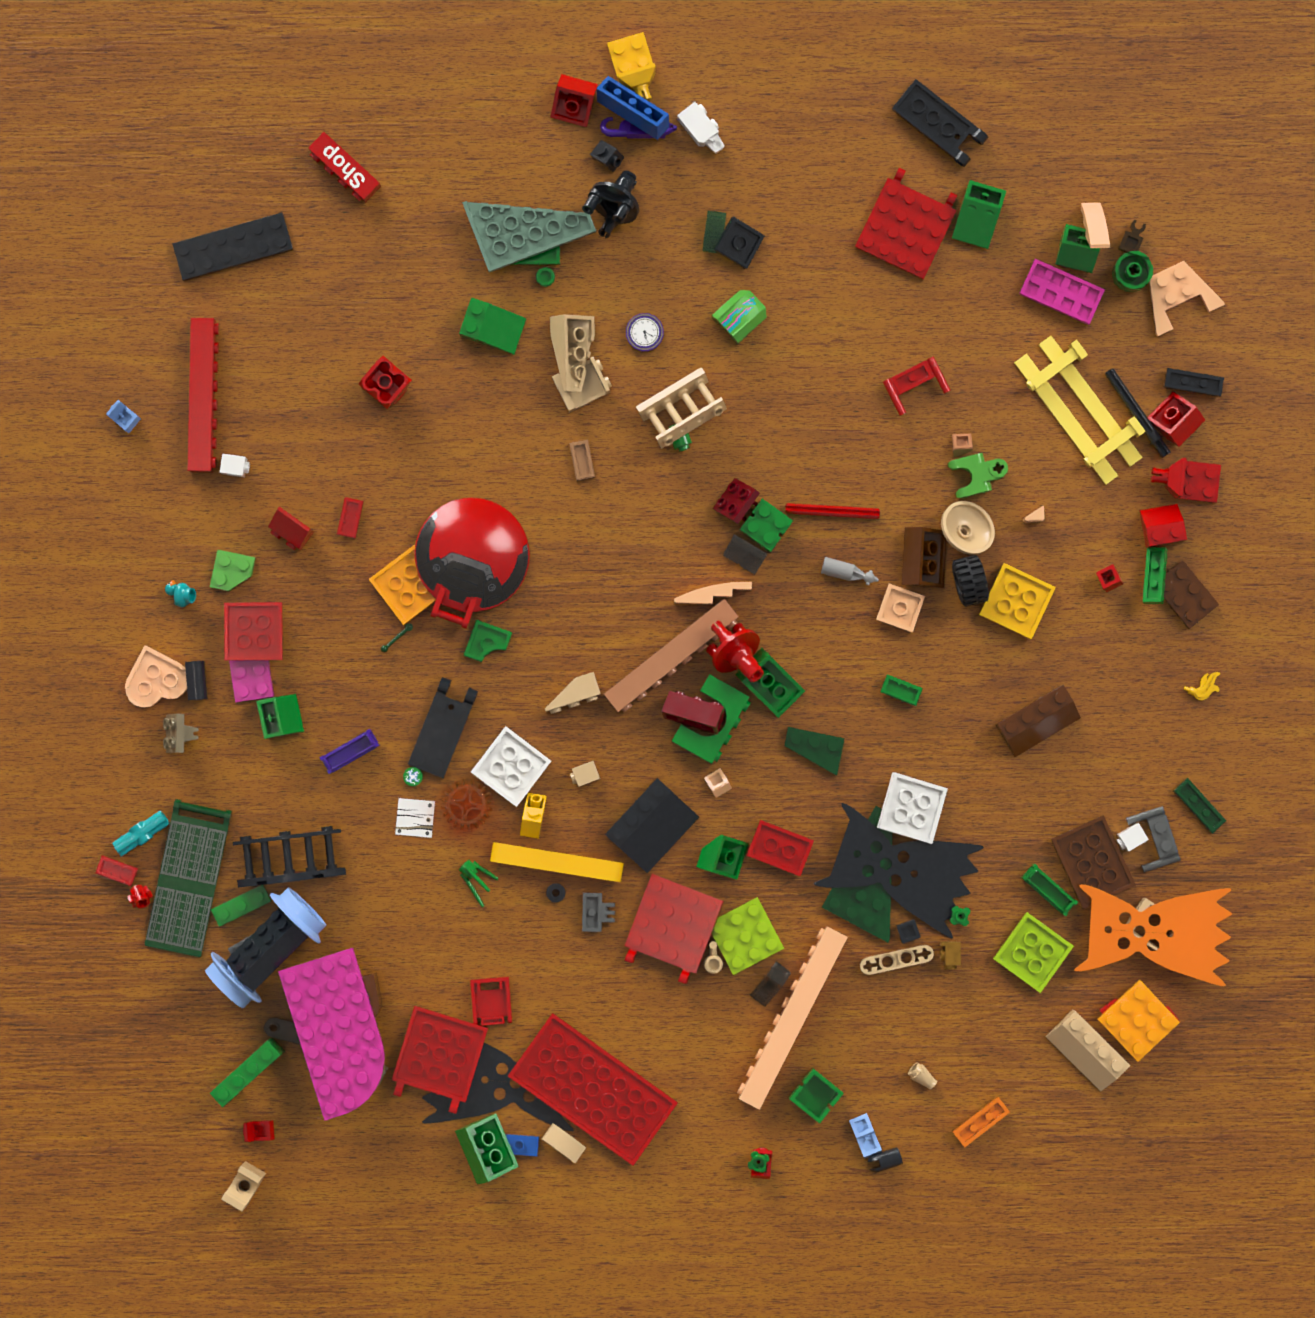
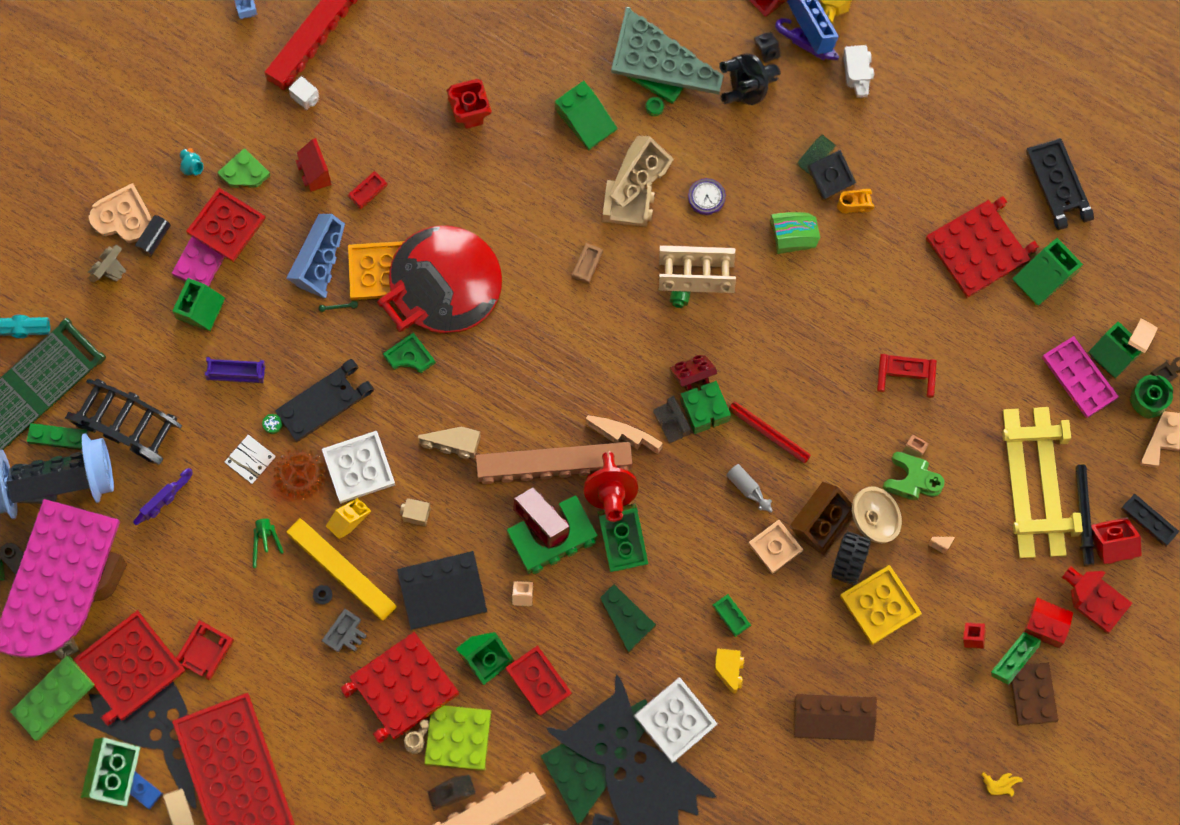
camera: 35 degrees right, 15 degrees down
(349, 605) = (317, 255): none -> medium blue wedge
(368, 898) = (163, 497): none -> dark purple plate
(397, 1121) = (52, 698): none -> bright green plate
(778, 252) = (859, 201): none -> light orange piece
(926, 735) = (727, 668): none -> yellow slope

